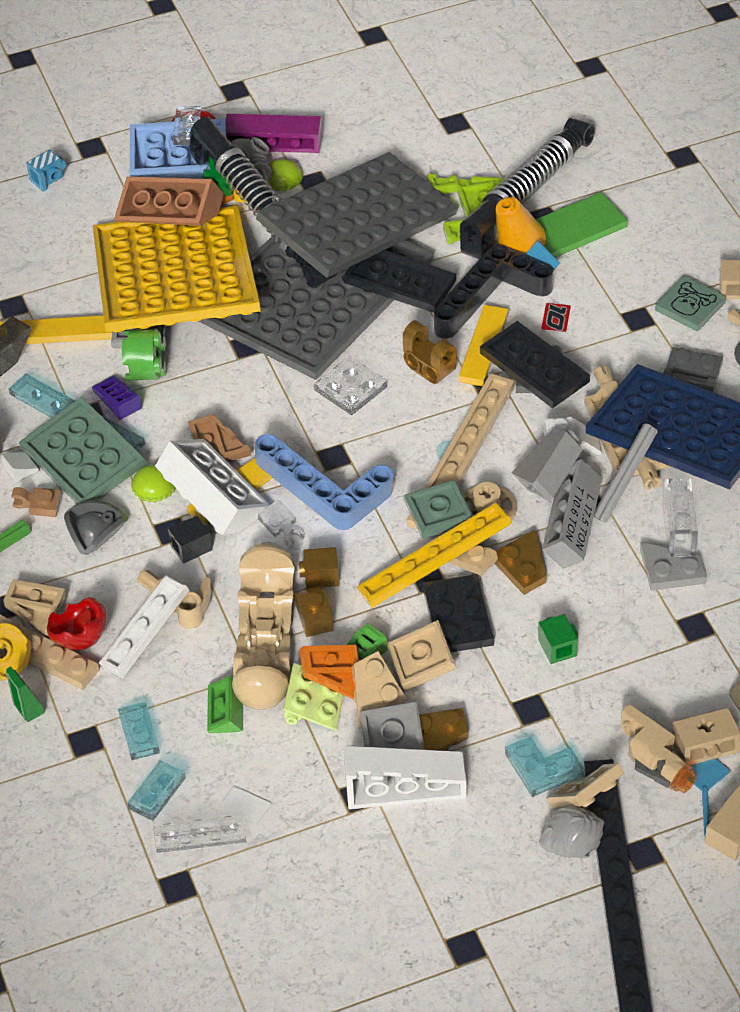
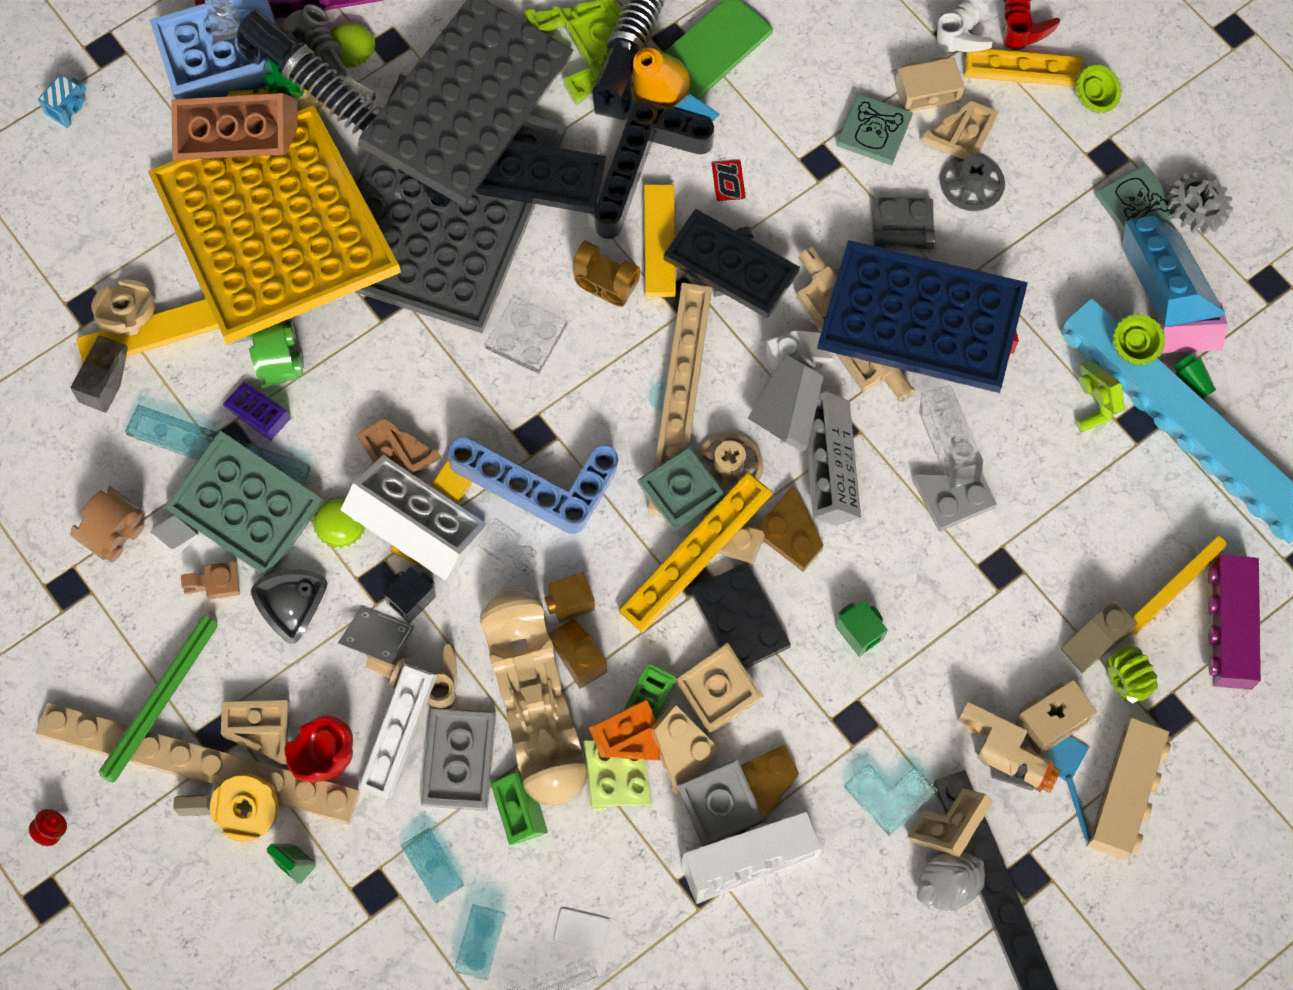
camera: 20 degrees left, 20 degrees up
(39, 307) = (126, 320): none -> tan plate
(153, 561) = (376, 635): none -> light grey sticker
(188, 662) = (458, 759): none -> light grey tile
(625, 472) = (878, 393): light grey axle -> none

